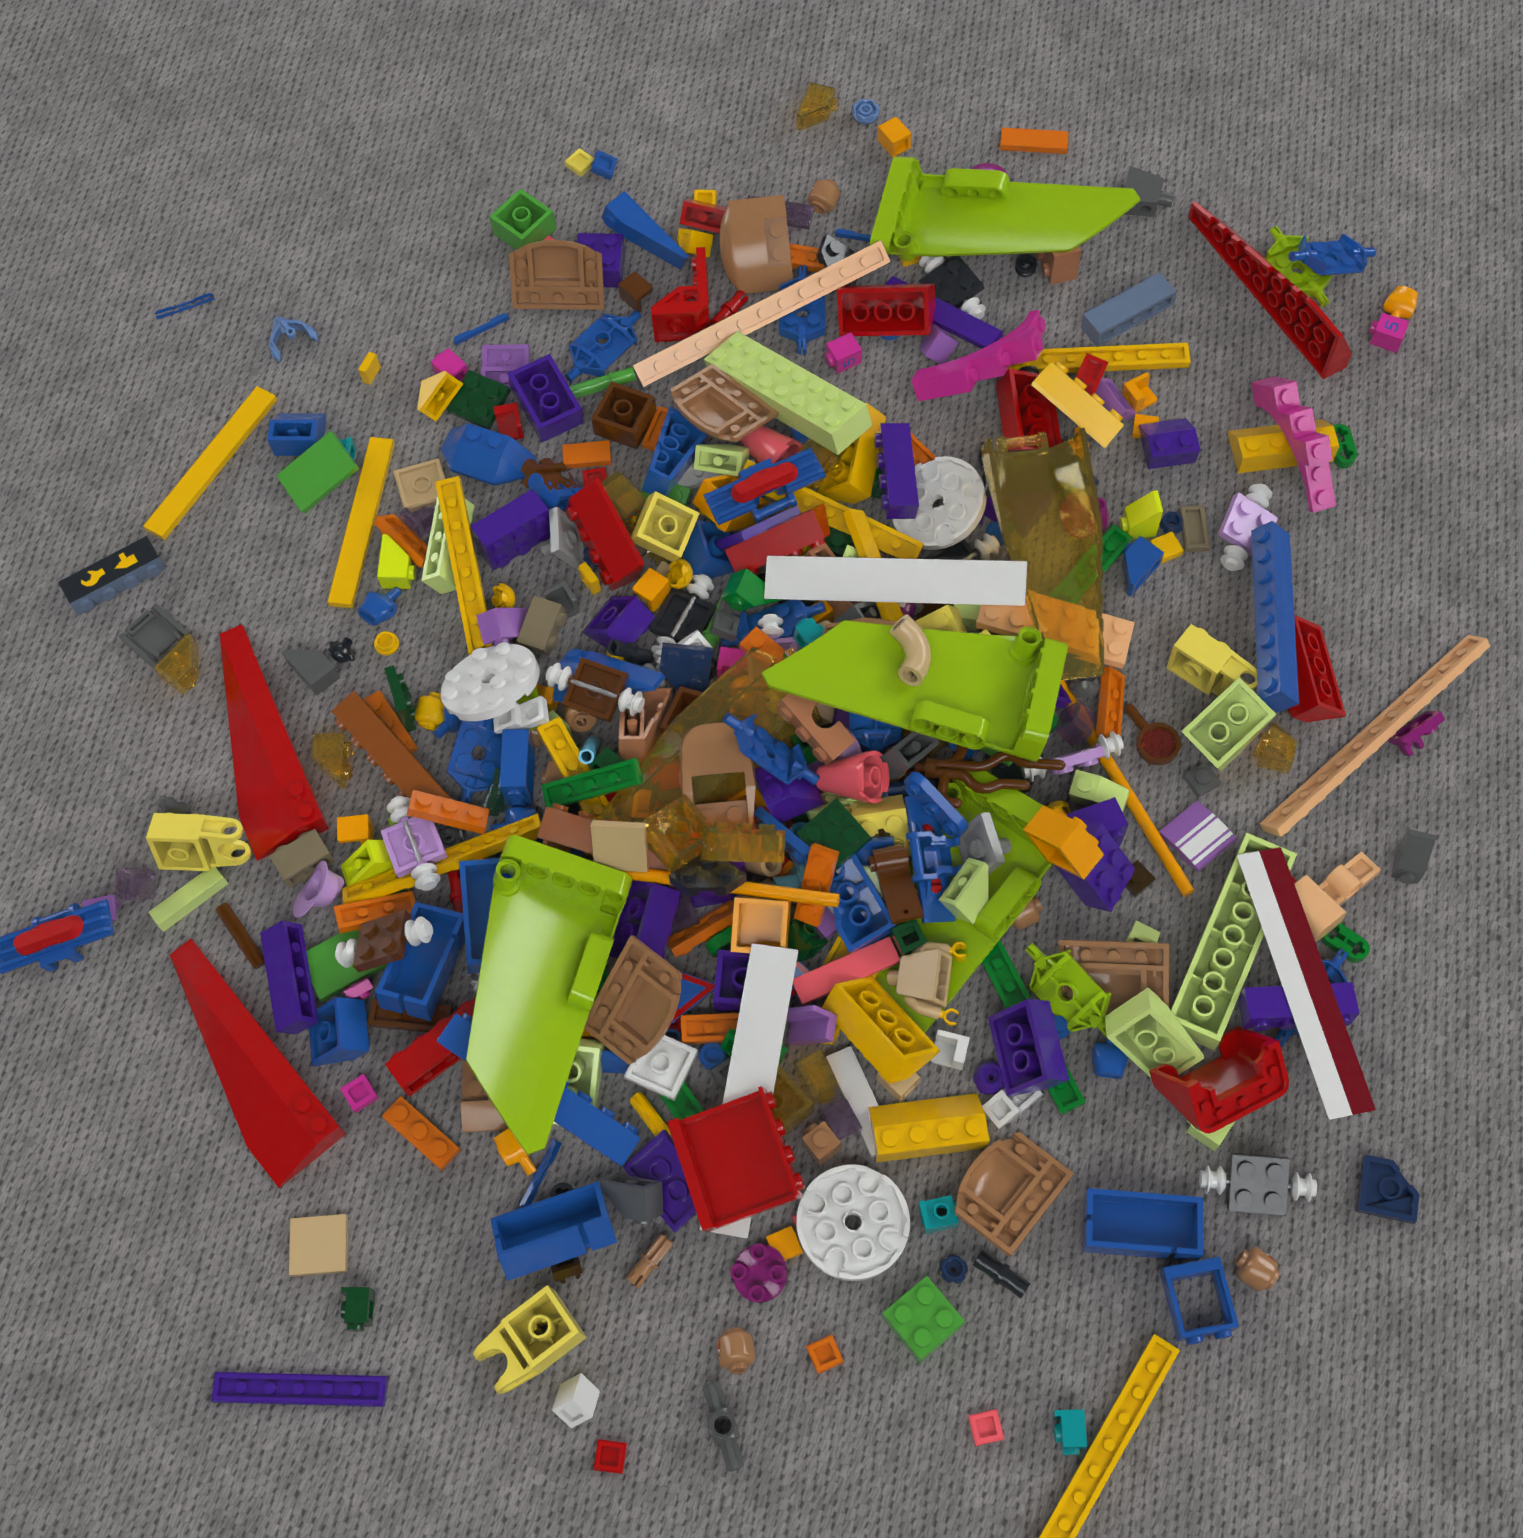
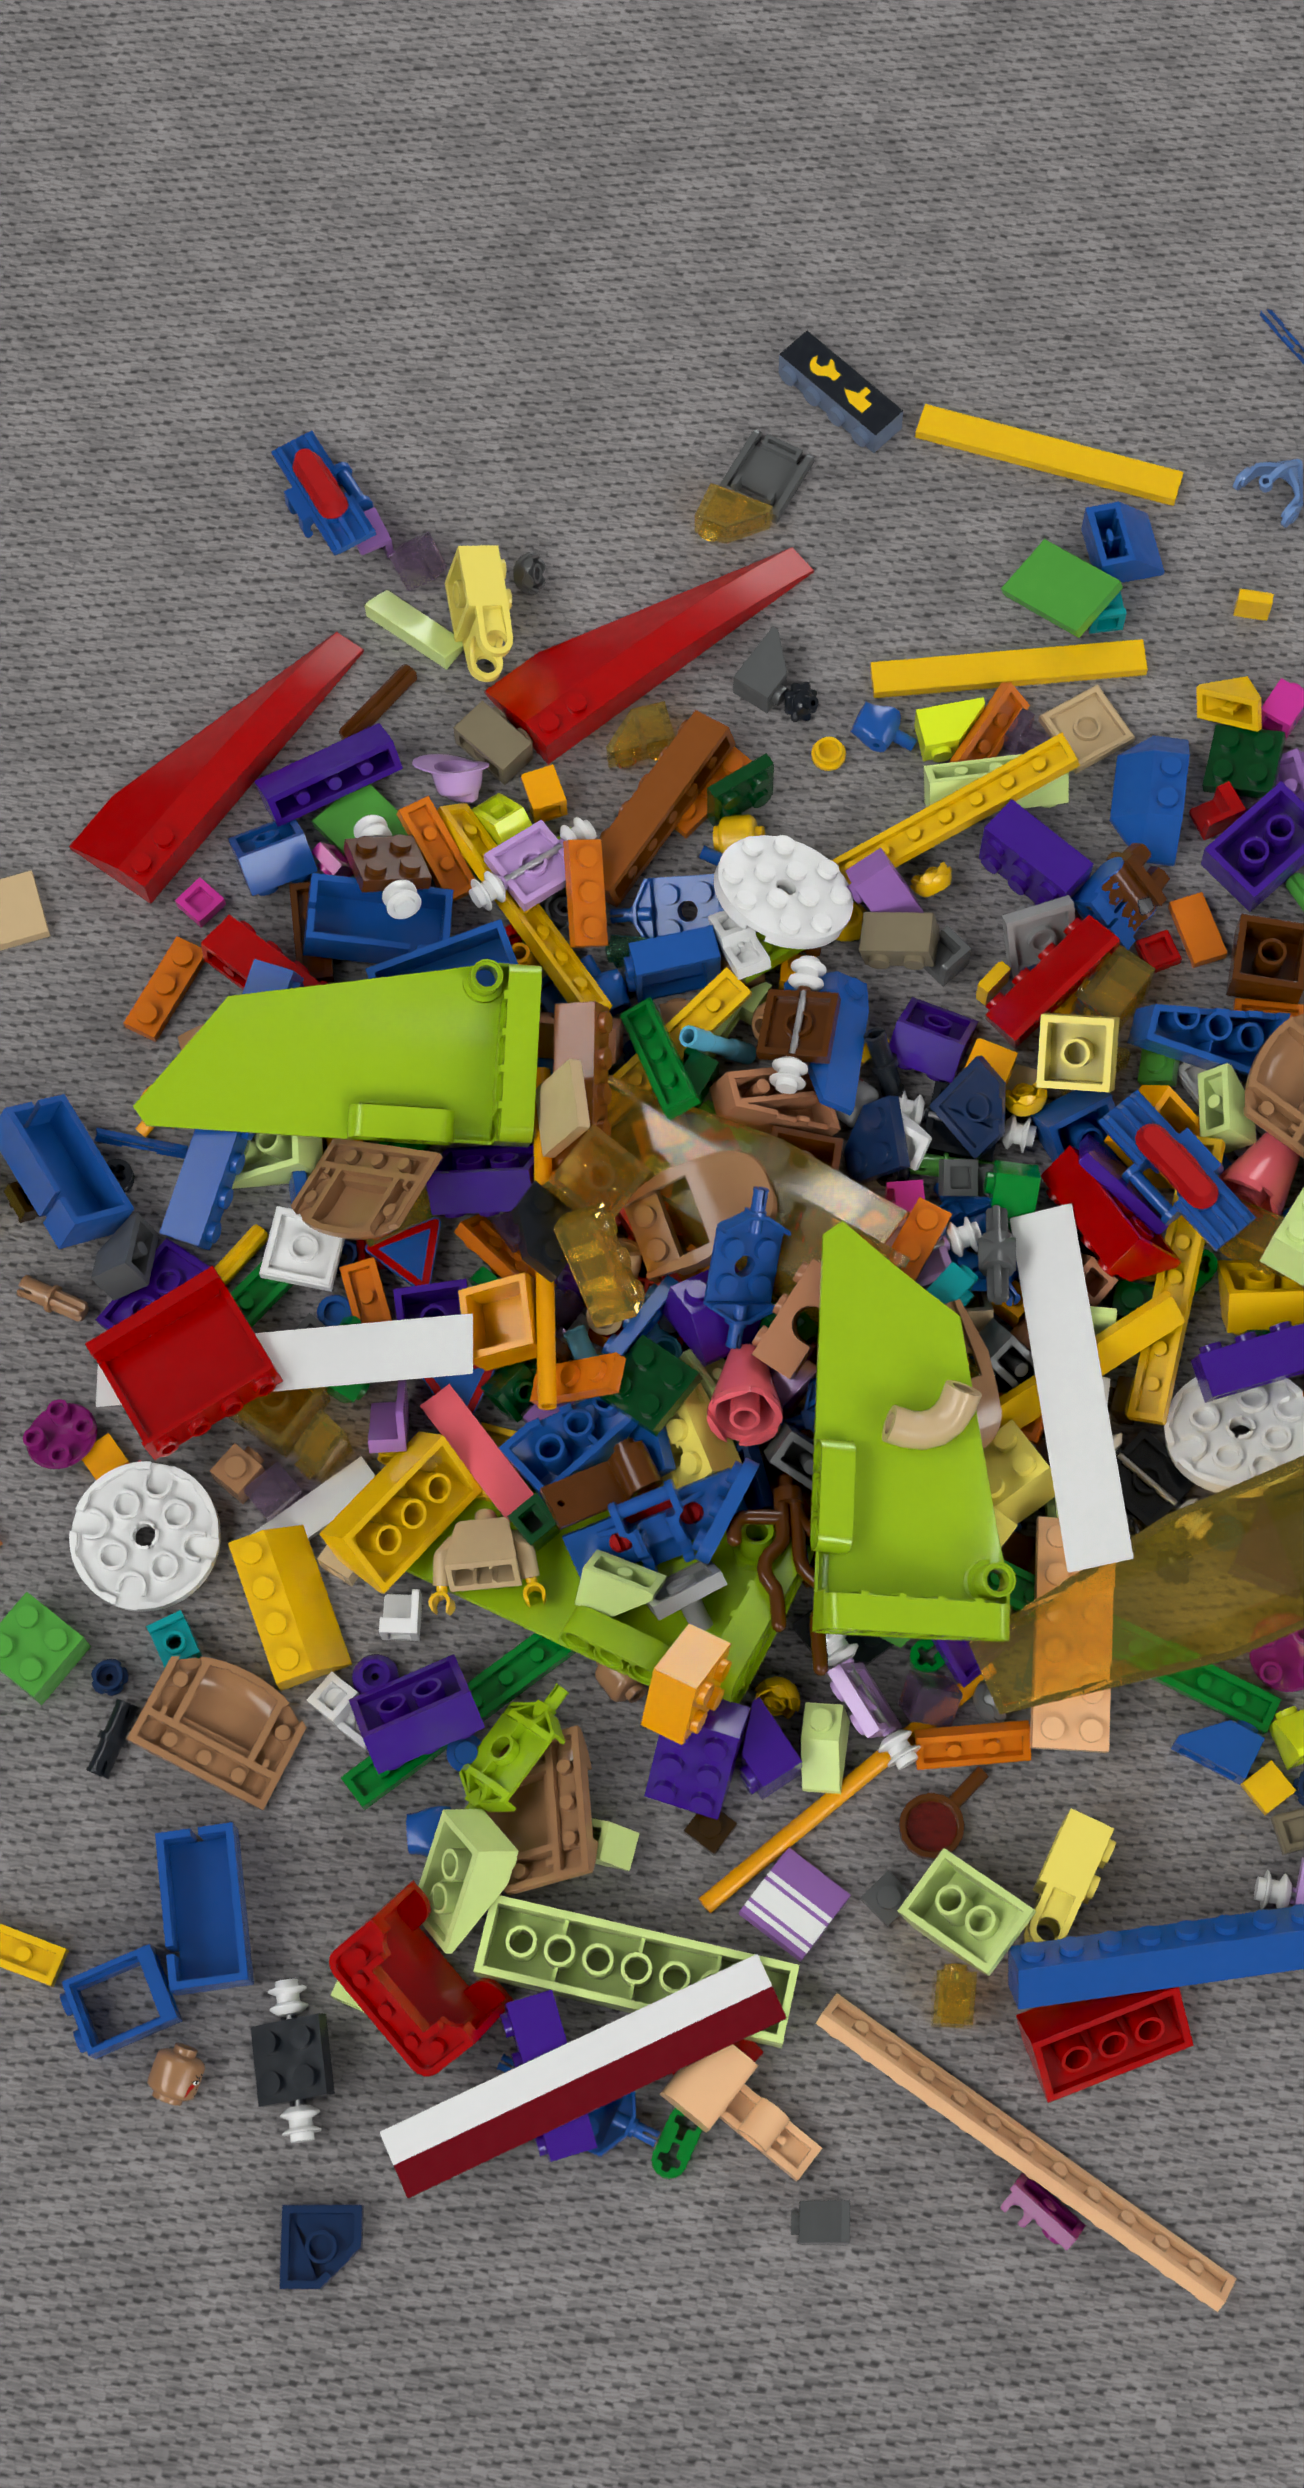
camera: 75 degrees right, 5 degrees up
(680, 602) = (974, 1107): none -> dark blue plate
(792, 606) = (997, 1254): none -> dark grey axle

